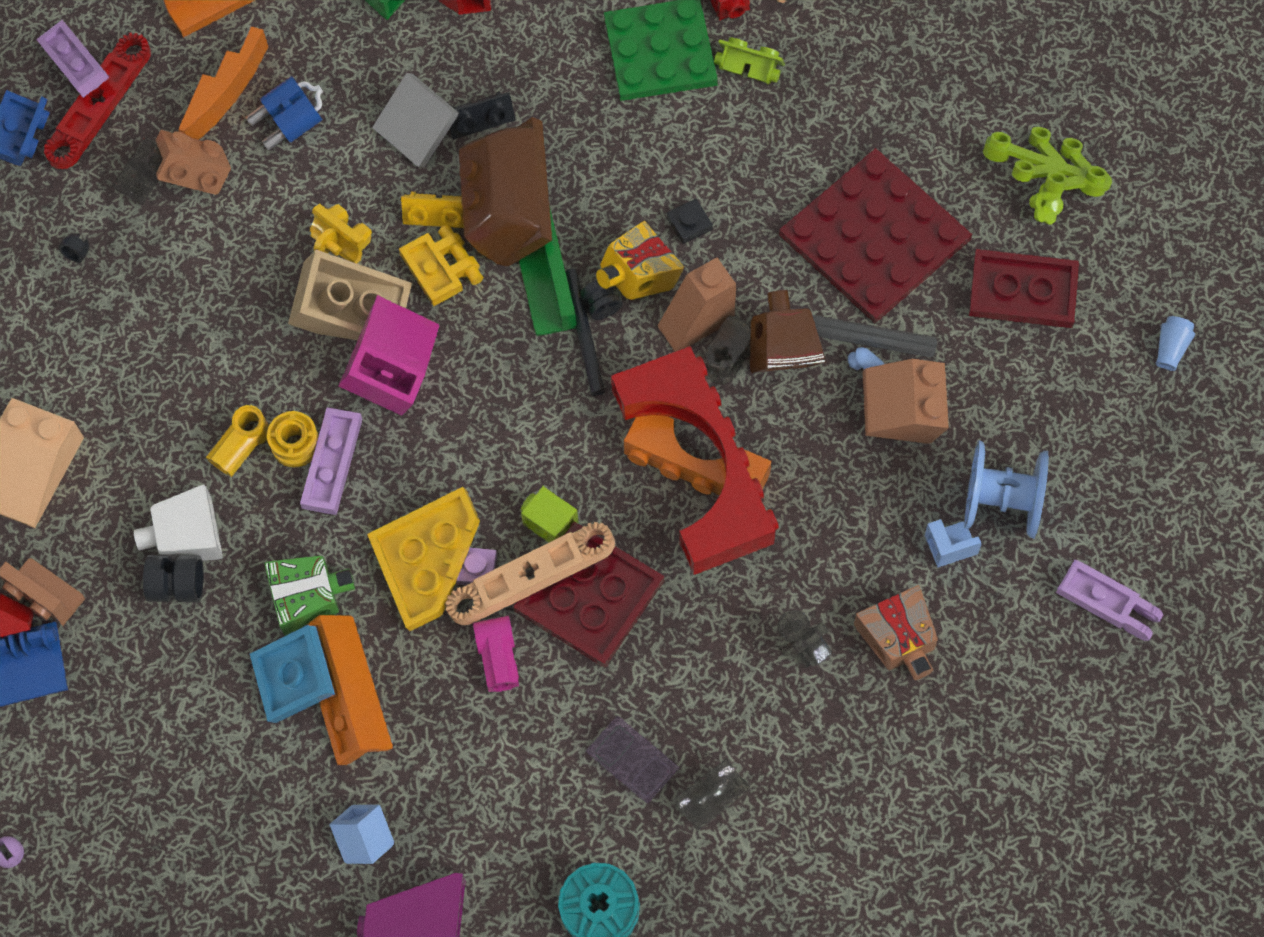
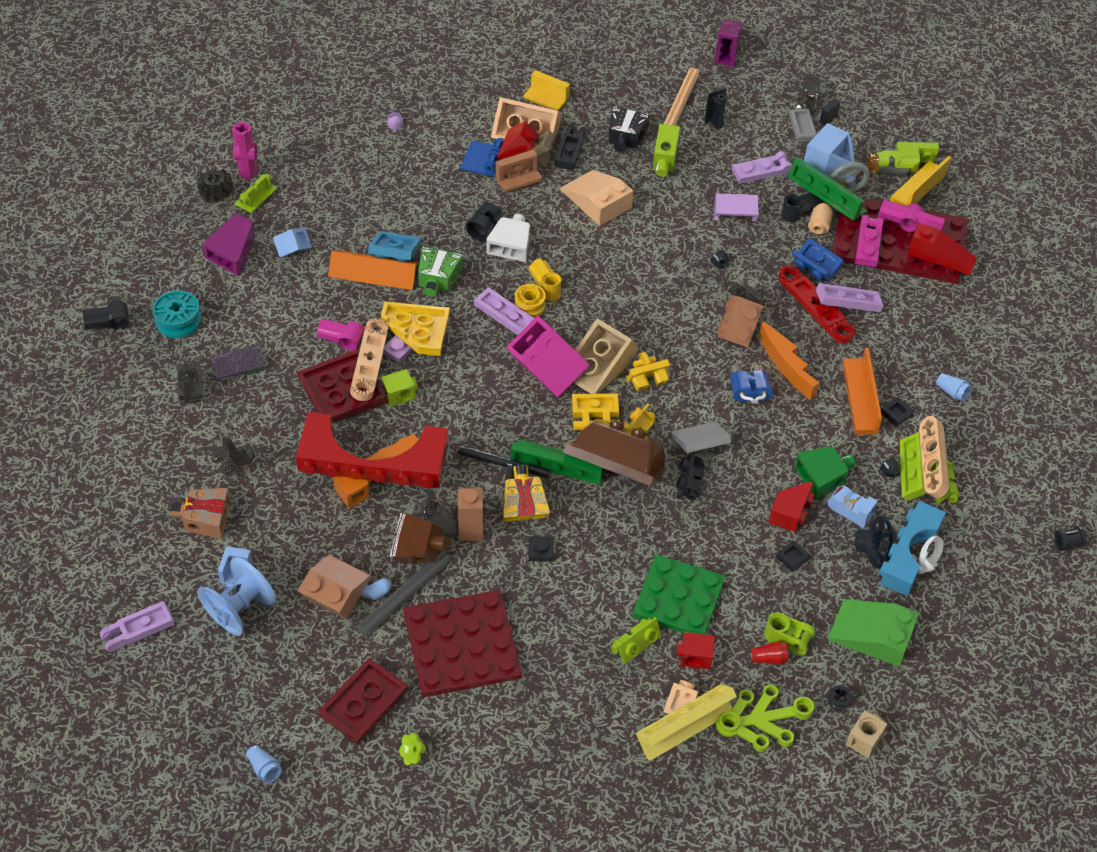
camera: 115 degrees right, 15 degrees down
(1049, 164) = (435, 767): lime plant -> none

